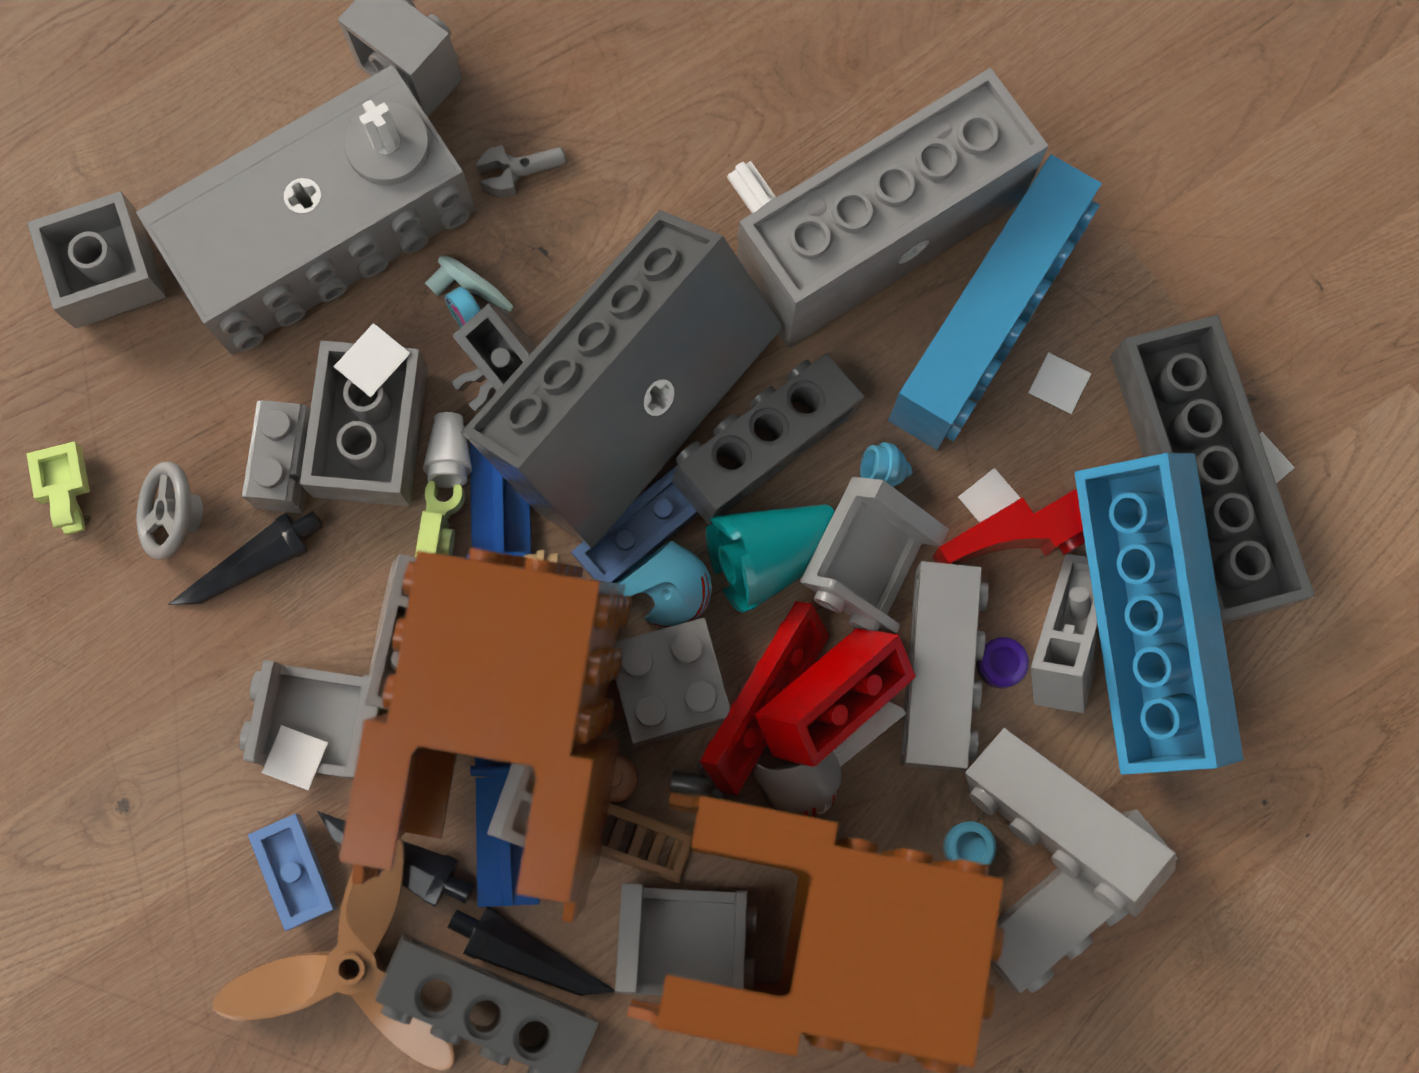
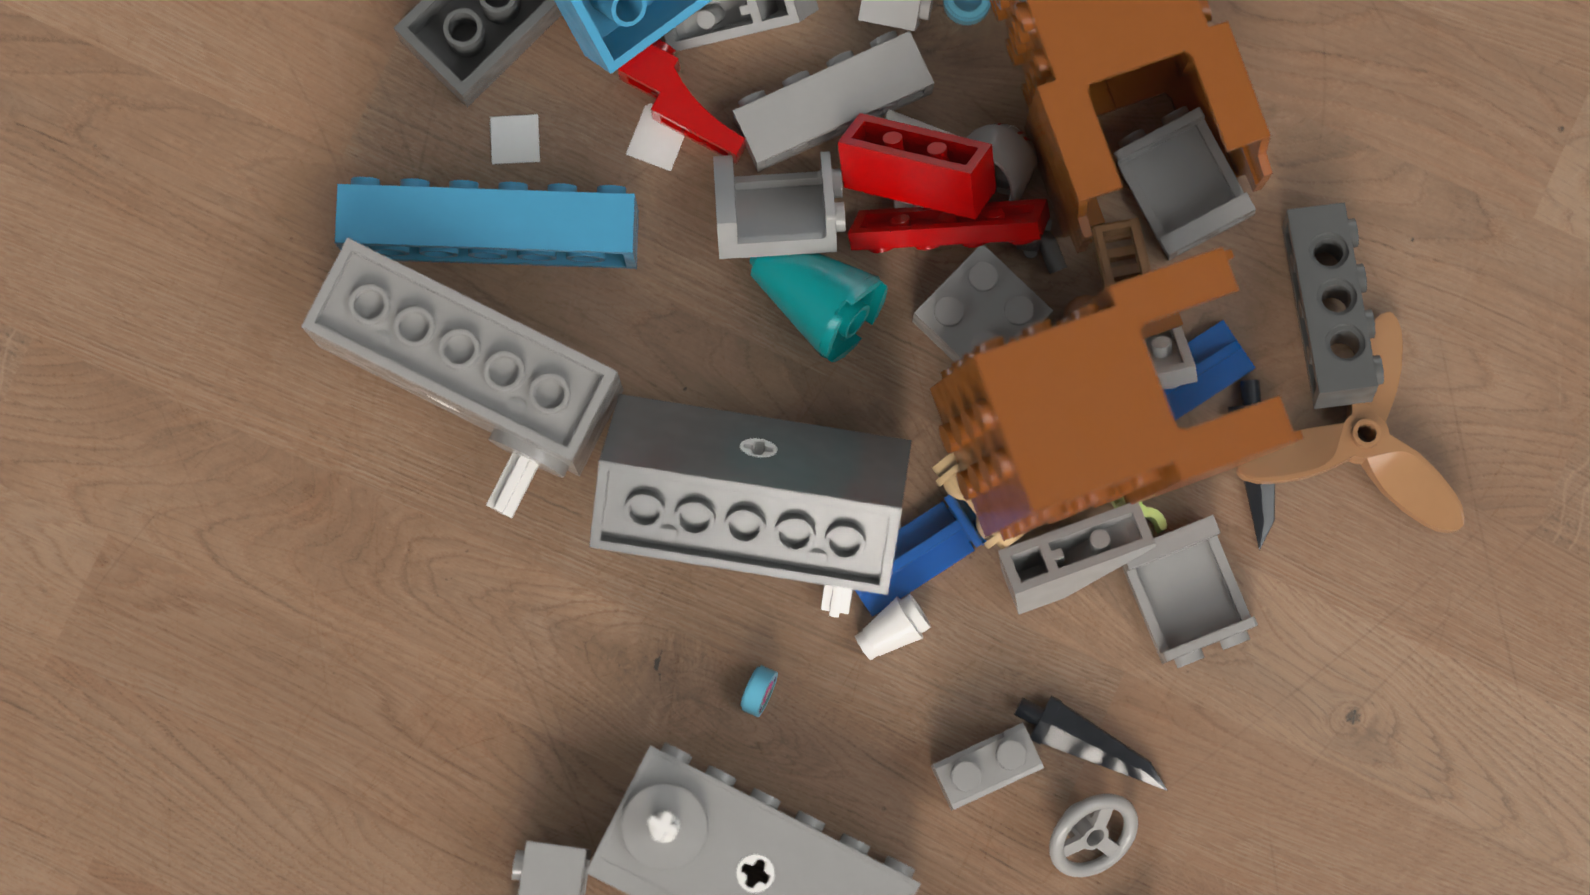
camera: 120 degrees left, 5 degrees up
(292, 872) = (1320, 534): medium blue plate -> none
(294, 757) = (1228, 591): white sticker -> none
(361, 443) = (915, 707): light grey brick -> none
(371, 360) = (861, 727): white sticker -> none
(434, 528) = (976, 588): yellowish green plate -> none
(454, 270) = (725, 727): light aqua bar -> none
(495, 347) = (785, 625): dark grey brick -> none
(510, 947) = (1271, 326): black bar -> none
(515, 168) = (591, 731): light grey bar -> none
(637, 532) = (837, 407): medium blue plate -> none
(674, 581) = (901, 356): medium azure helmet -> none
(717, 490) = (657, 319): dark grey brick -> none
(885, 463) = (685, 245): medium azure plate -> none
(1003, 663) = (796, 52): dark purple tile -> none

